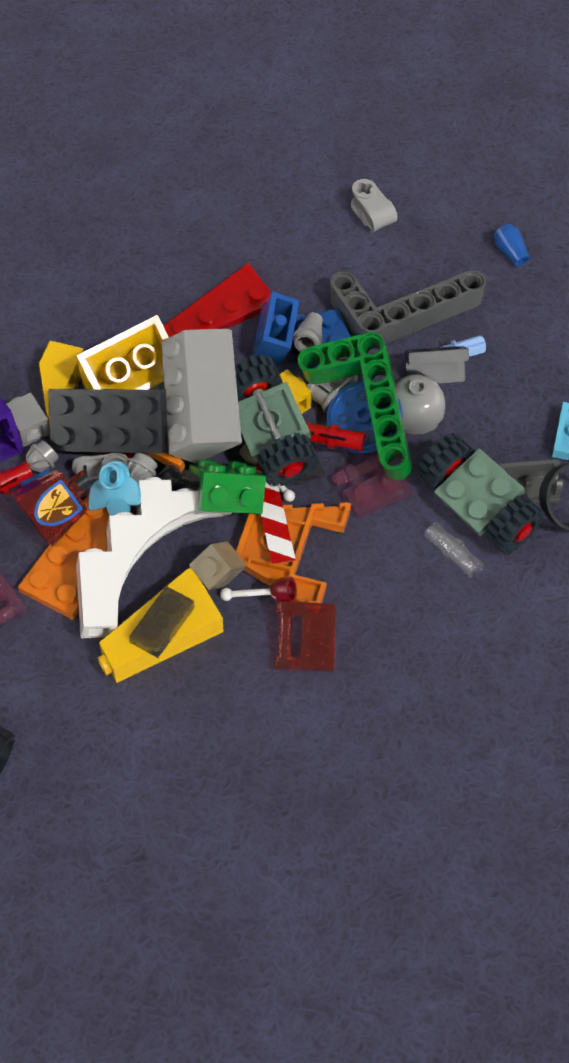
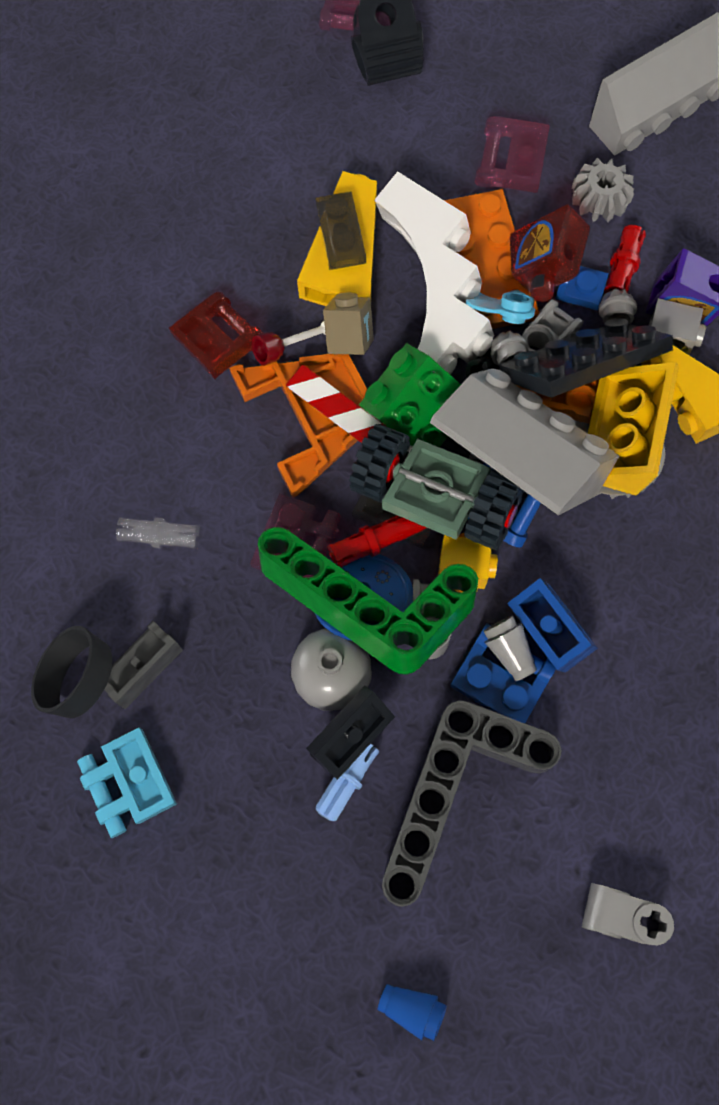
camera: 140 degrees right, 15 degrees up
(225, 305) = (641, 626): red wing -> none
(480, 493) = (168, 597): plate -> none

